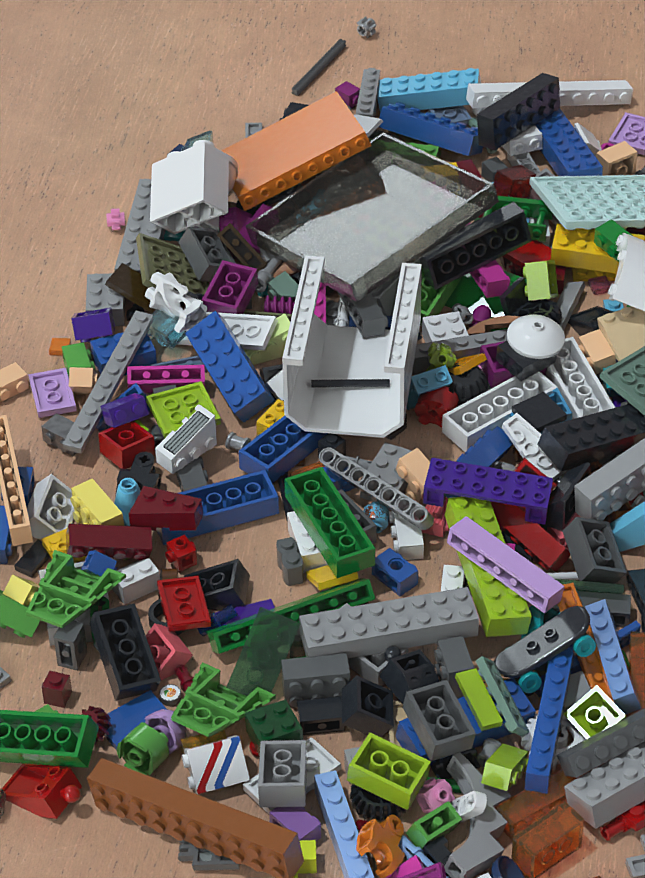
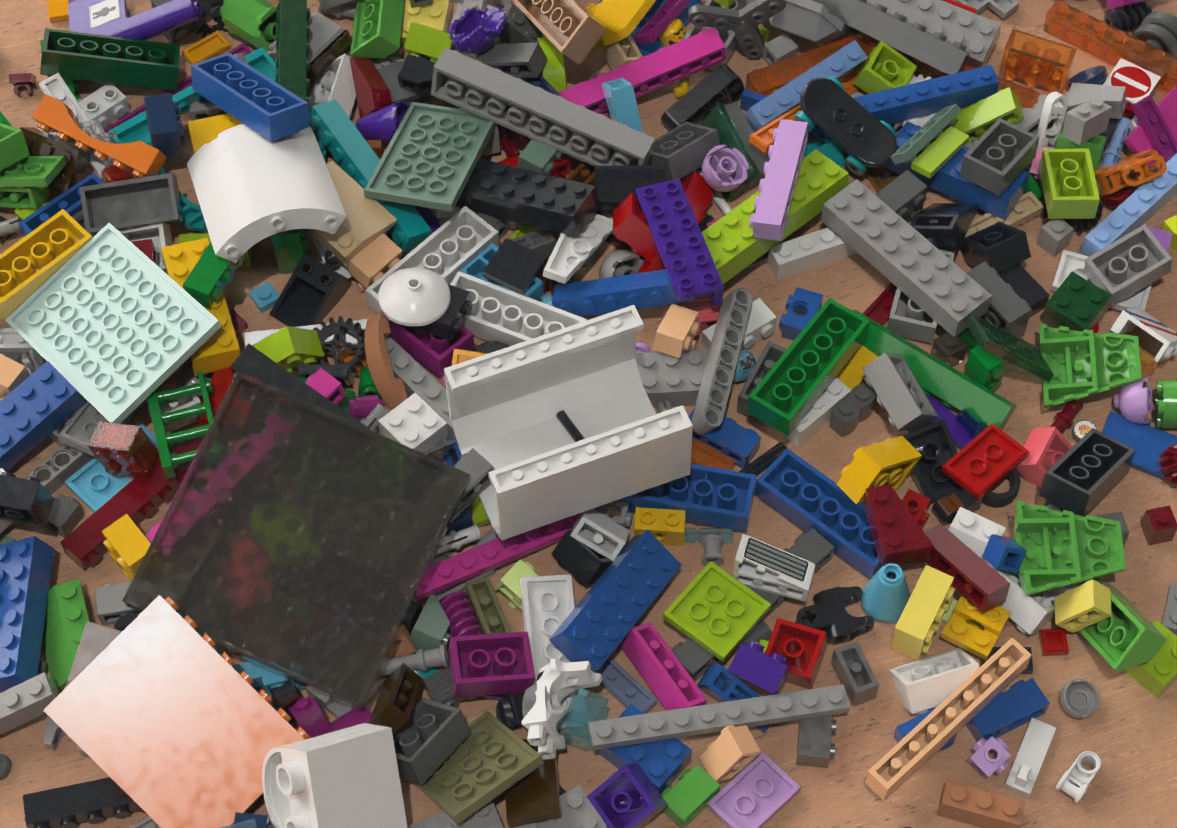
camera: 120 degrees left, 15 degrees up
(87, 465) = (855, 673): none -> flat silver brick
(220, 530) = (878, 466): none -> yellow brick
(275, 578) = (899, 392): none -> light grey brick
(447, 822) = (1086, 121): none -> light grey brick
(555, 559) = (724, 168): none -> lavender cylinder

